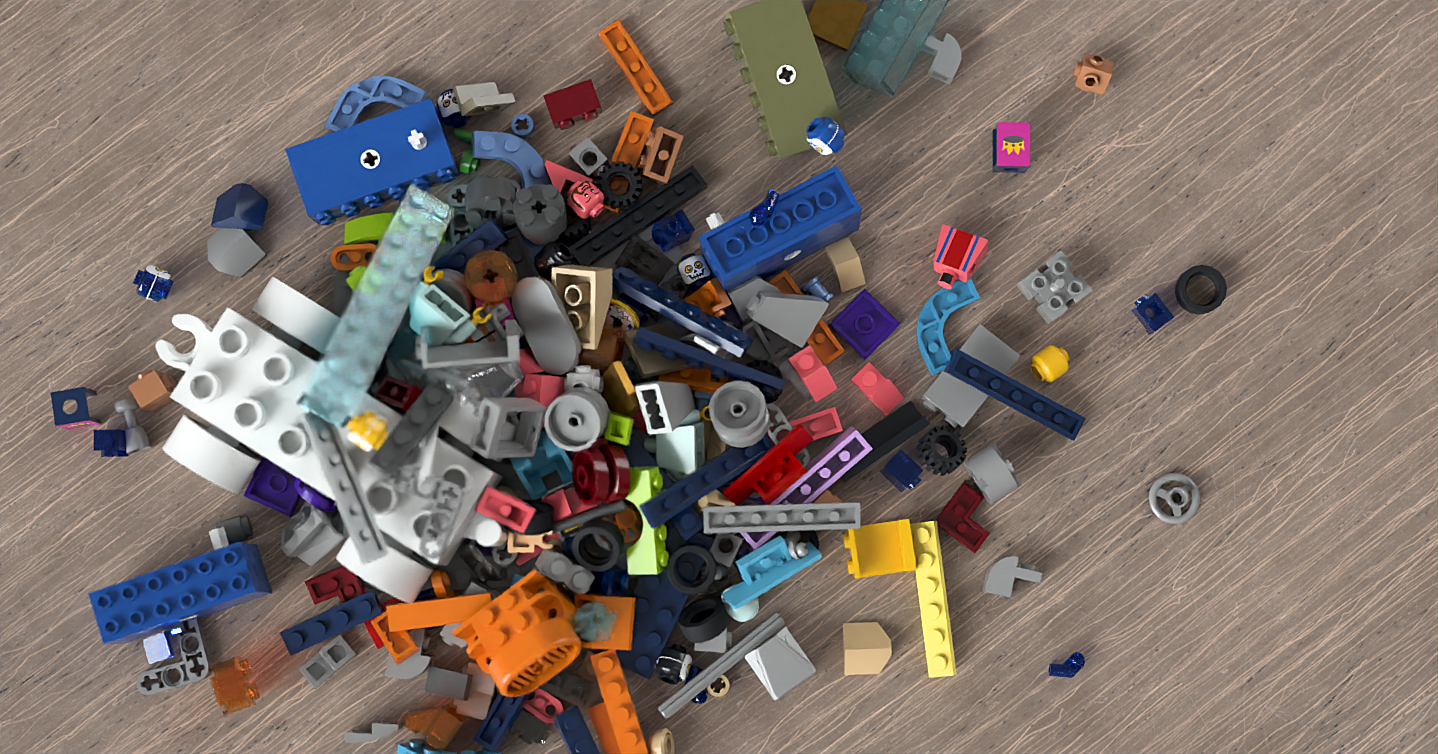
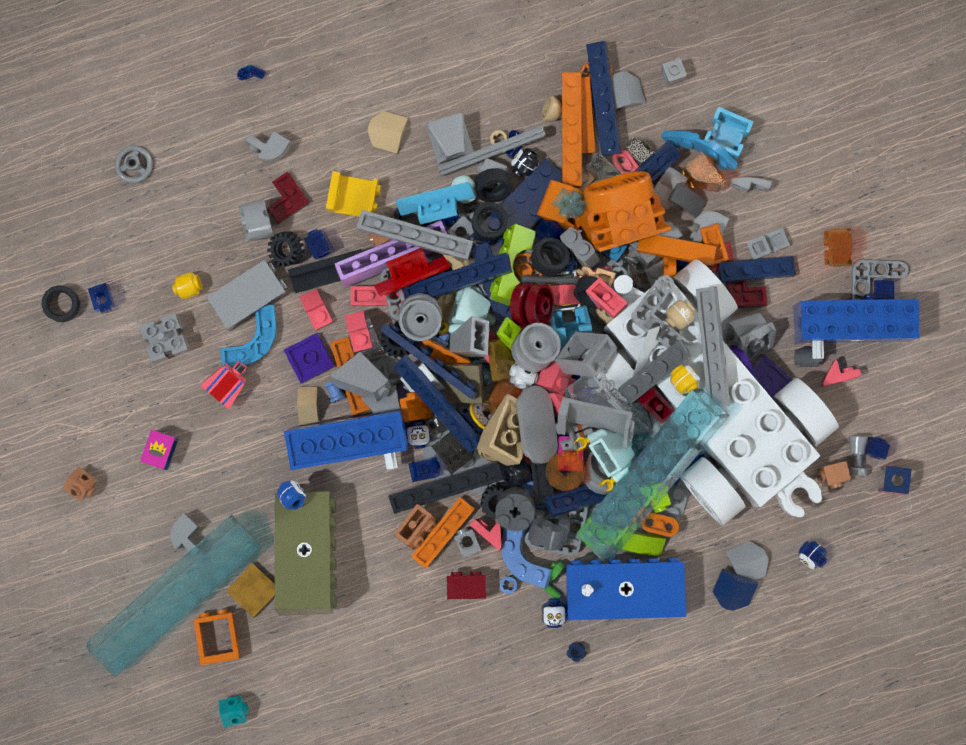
camera: 155 degrees left, 0 degrees up
(192, 516) = (835, 376): none -> coral slope
(370, 92) = (614, 646): medium blue plate -> none
(399, 513) = (680, 314): none -> tan head
(419, 70) = (581, 652): none -> dark blue plate
(481, 99) = (532, 613): panel -> none
(585, 199) = (479, 509): coral head -> none
(627, 172) = (452, 502): black tyre -> none
(635, 67) = (411, 601): orange tile -> none
(764, 209) = (353, 452): clear blue arm -> none
(796, 550) = (413, 211): light grey arm -> none
(933, 599) = (327, 148): light yellow plate -> none
(1014, 394) = (220, 270): dark blue plate -> none

